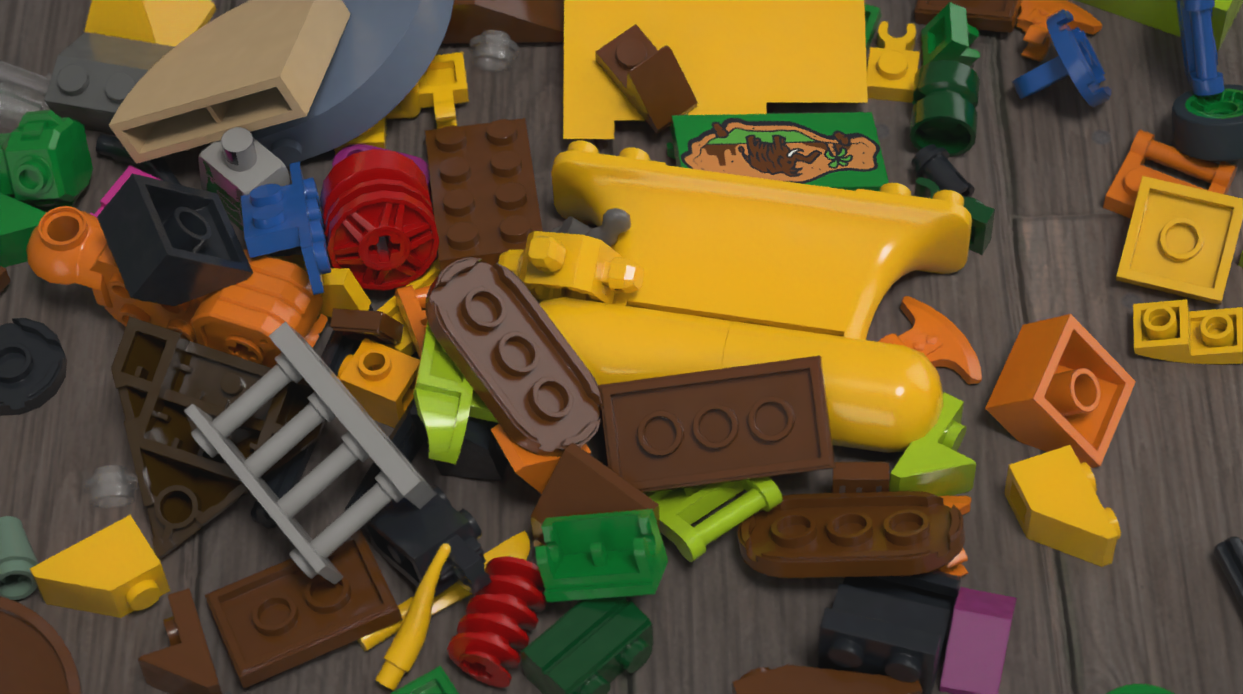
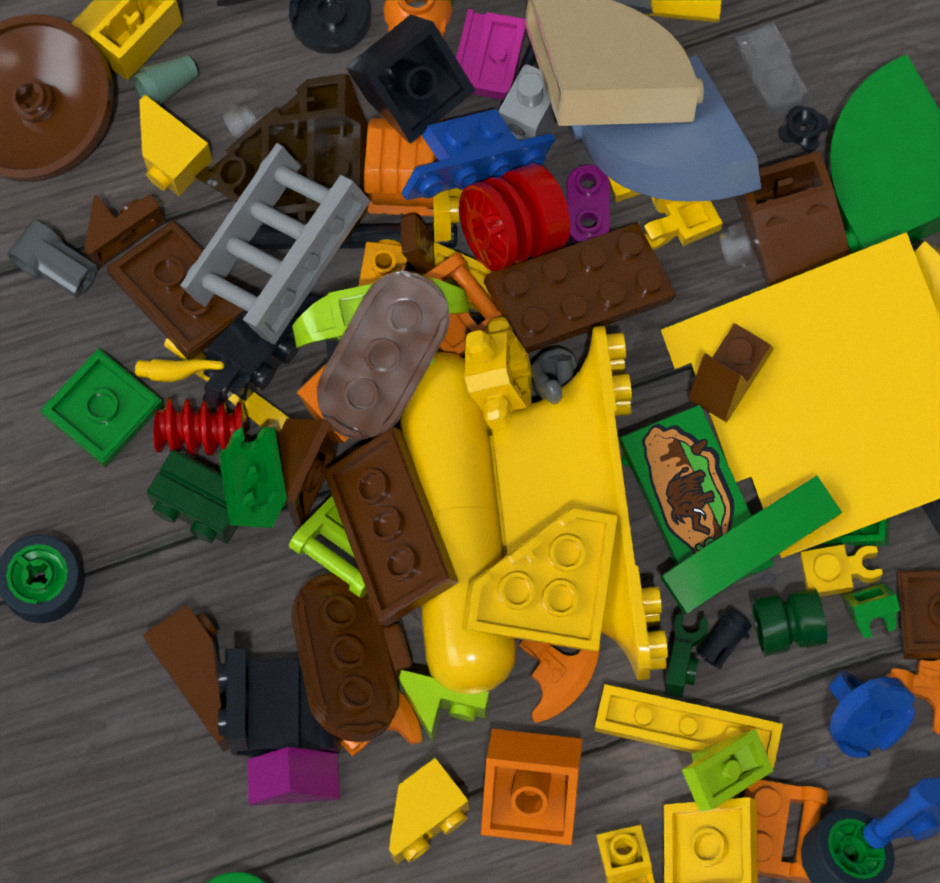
camera: 75 degrees right, 15 degrees up
(852, 272) = (549, 585): none -> yellow plate
(853, 104) = (750, 545): none -> green slope
(1032, 234) = (676, 722): none -> yellow plate
(1100, 199) = (726, 769): none -> lime slope

